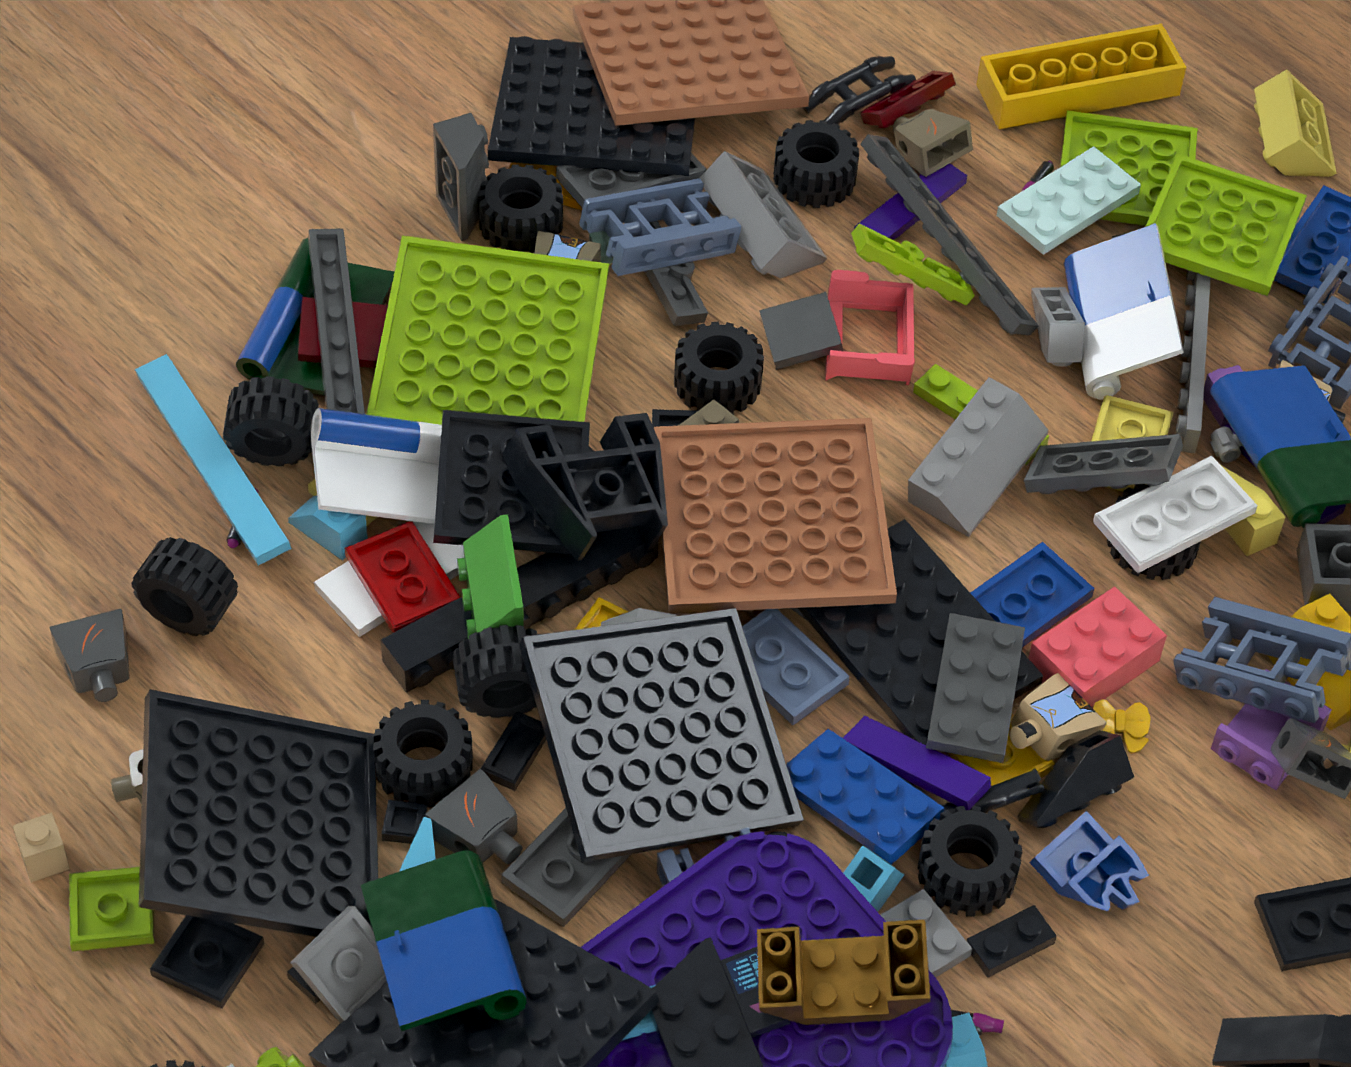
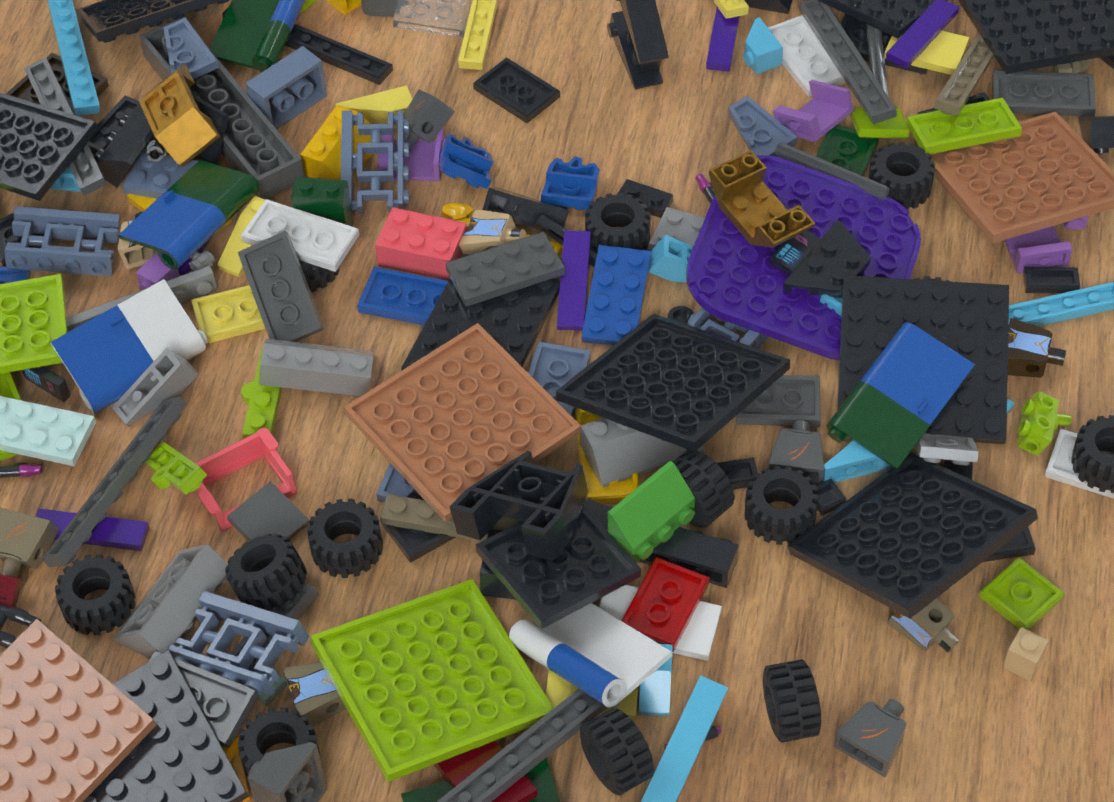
camera: 120 degrees left, 0 degrees up
(724, 282) = (266, 571): none -> black tyre
(1209, 768) = (466, 161): none -> blue plate
(1213, 565) = (323, 198): none -> dark green brick

